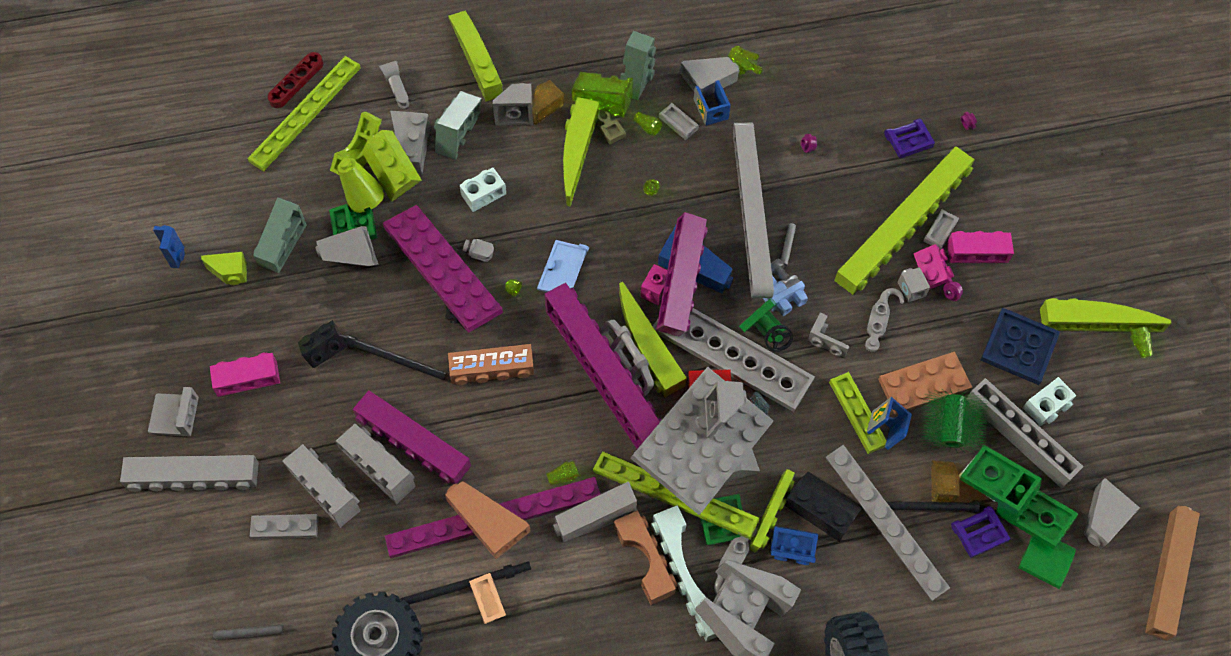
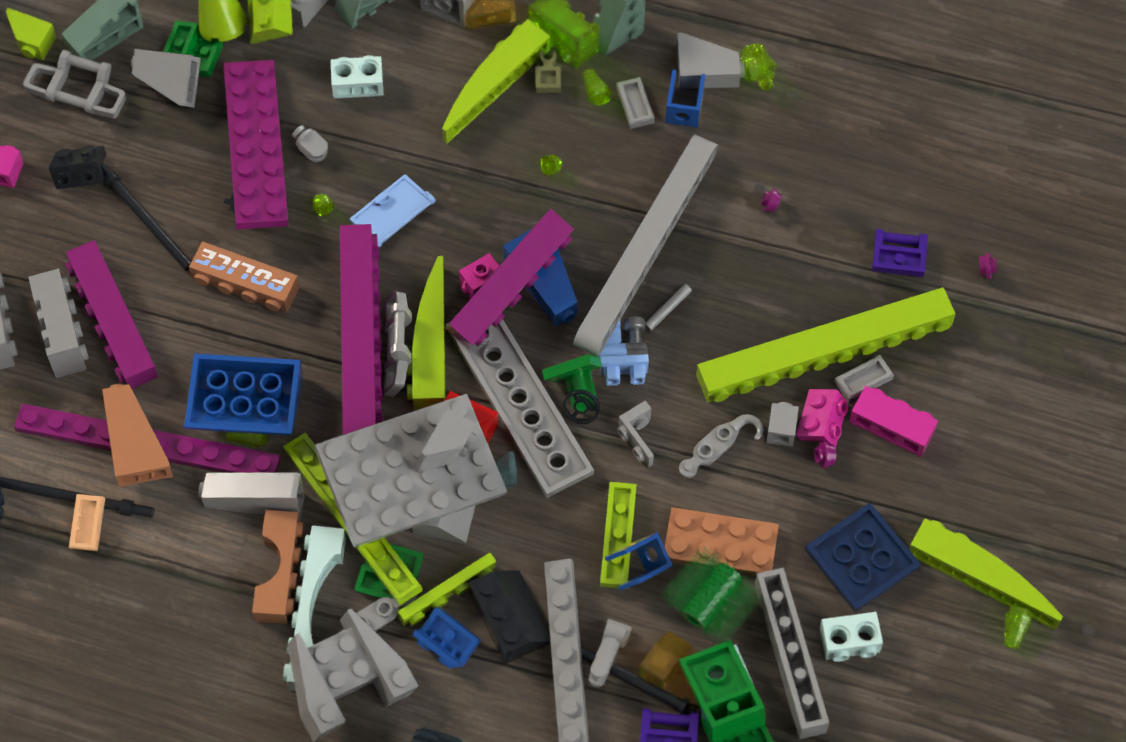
camera: 30 degrees right, 0 degrees up
(269, 300) = (60, 75): none -> light grey bar
(546, 447) = (243, 394): none -> blue slope
(902, 482) = (614, 636): none -> light grey piece

